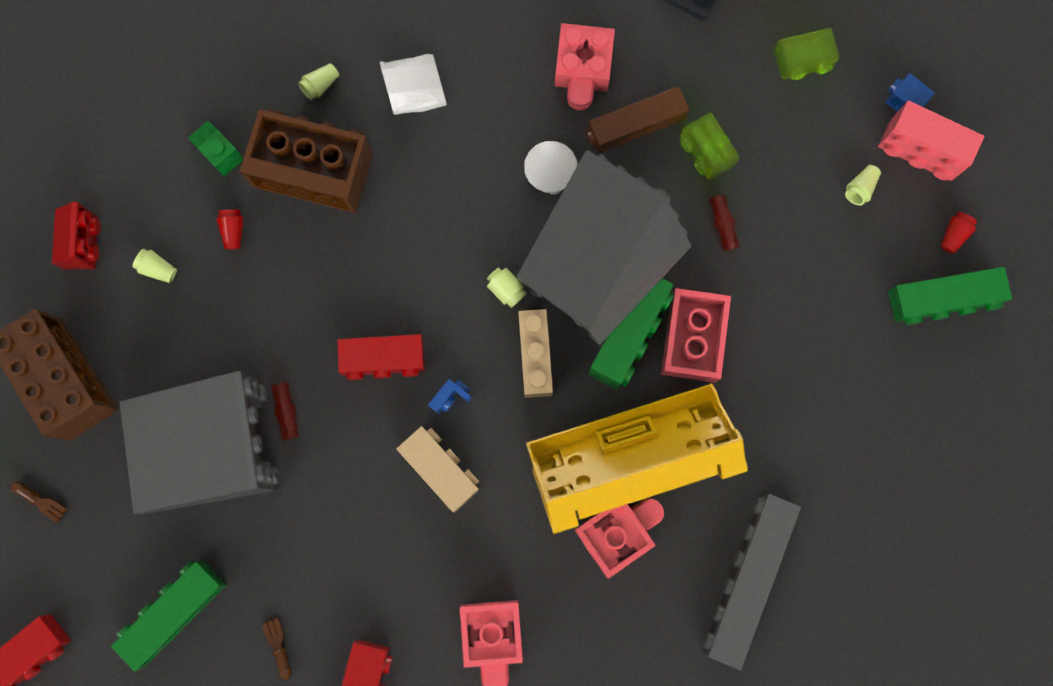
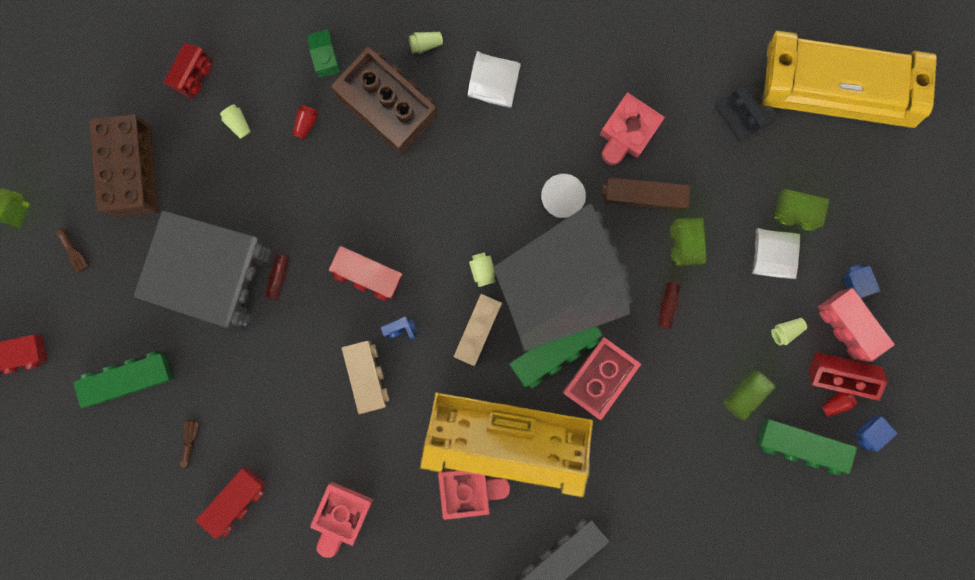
camera: 30 degrees right, 5 degrees up
(806, 113) = (776, 254): none -> white slope
(860, 272) = (749, 395): none -> clear neon green brick
(951, 198) = (847, 376): none -> red brick
(1013, 244) = (875, 434): none -> blue brick

